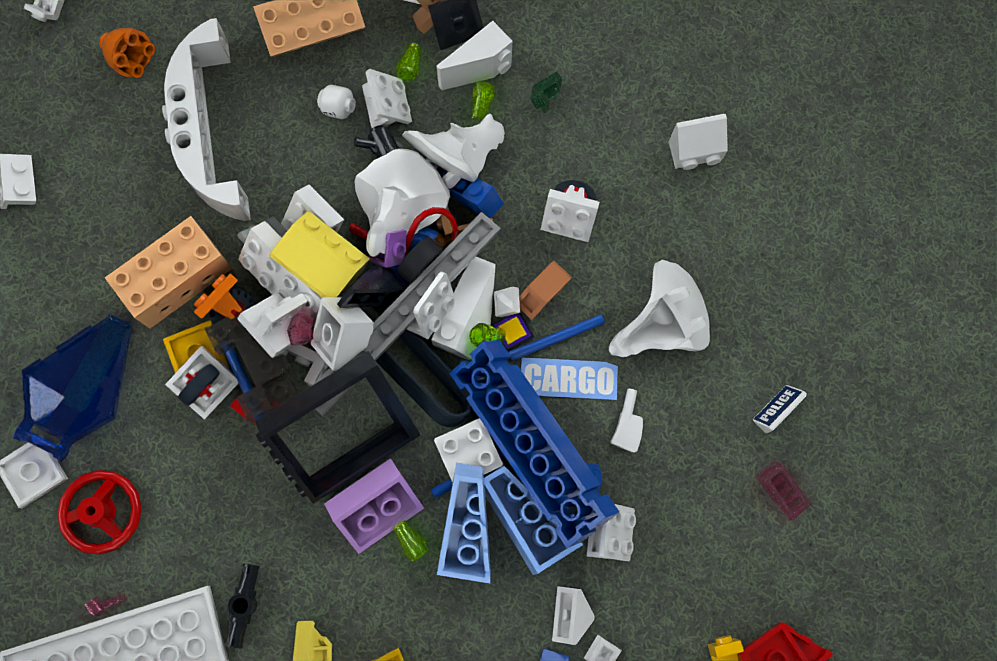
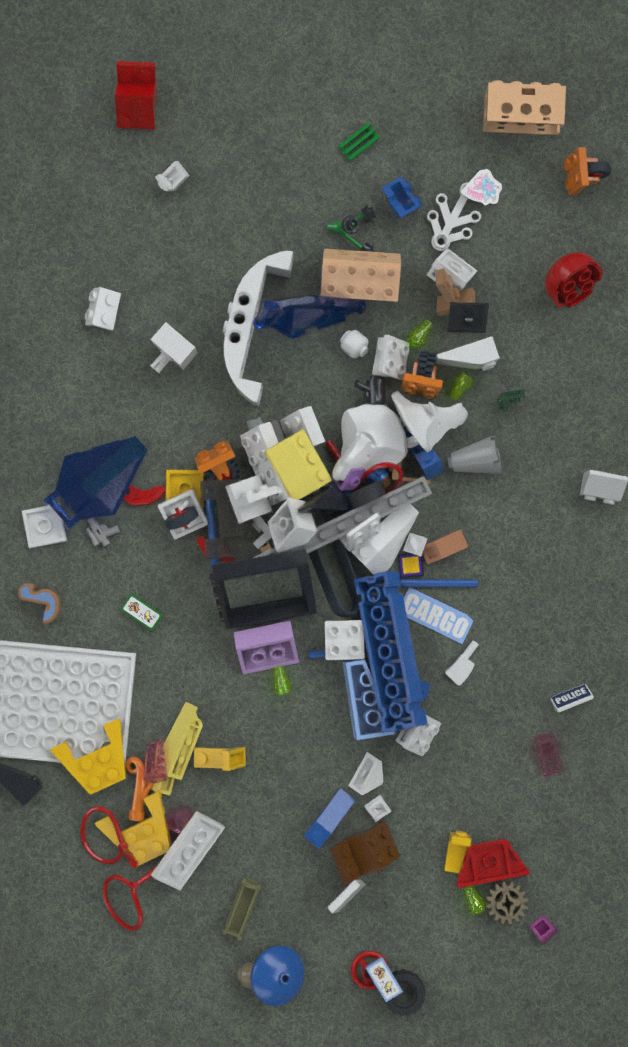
camera: 30 degrees right, 10 degrees up
(69, 561) = (44, 596): none -> medium nougat animal
(96, 607) = (57, 636): clear pink hand -> none
(99, 511) = (81, 573): red piece -> none
(107, 450) = (100, 532): none -> light grey piece
(114, 188) = (172, 348): none -> white brick
(127, 51) = (217, 241): orange piece -> none
(141, 386) = (141, 497): none -> red piece
(167, 271) = (188, 427): light nougat piece -> none
(196, 529) = (141, 612): none -> tile
(240, 620) = (148, 685): black pin -> none
(261, 81) = (297, 313): none -> clear blue windscreen
(300, 329) = (264, 510): clear pink piece -> none
(433, 107) = (423, 377): none -> orange plate
(465, 535) = (319, 694): light blue wedge -> none
(485, 332) = (390, 563): clear neon green cone -> none
(537, 170) = (477, 458): none -> light grey cone
(570, 210) = (489, 496): white plate -> none
(670, 320) = (526, 606): white animal -> none

